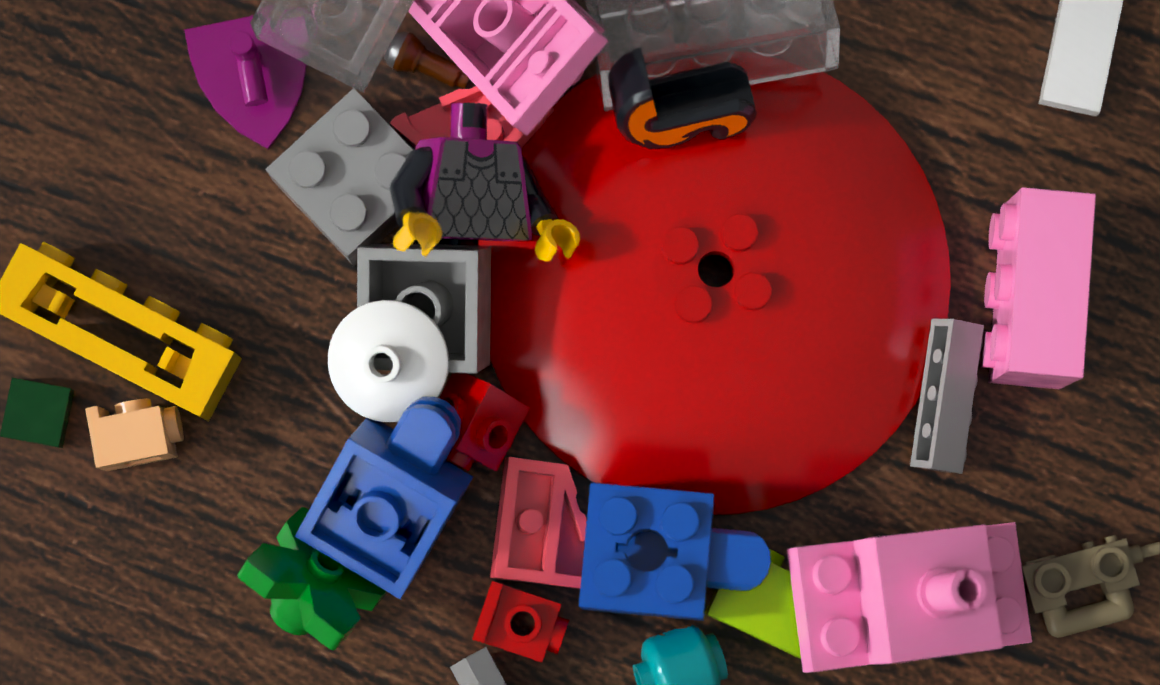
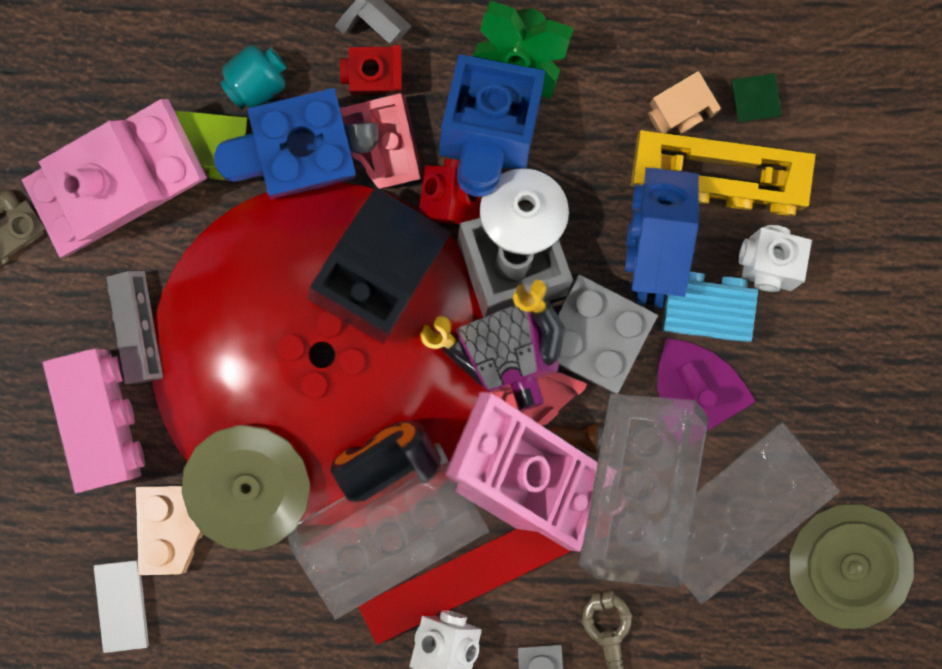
camera: 160 degrees right, 5 degrees up
(89, 193) = (775, 259): none -> white brick
(197, 161) = (712, 309): none -> medium azure brick
(218, 269) = (662, 234): none -> blue brick
(564, 537) = (362, 136): none -> dark grey hinge
(600, 354) = (378, 265): none -> black slope
(872, 133) = (245, 487): none -> olive piece
(982, 129) = (164, 531): none -> light nougat wing

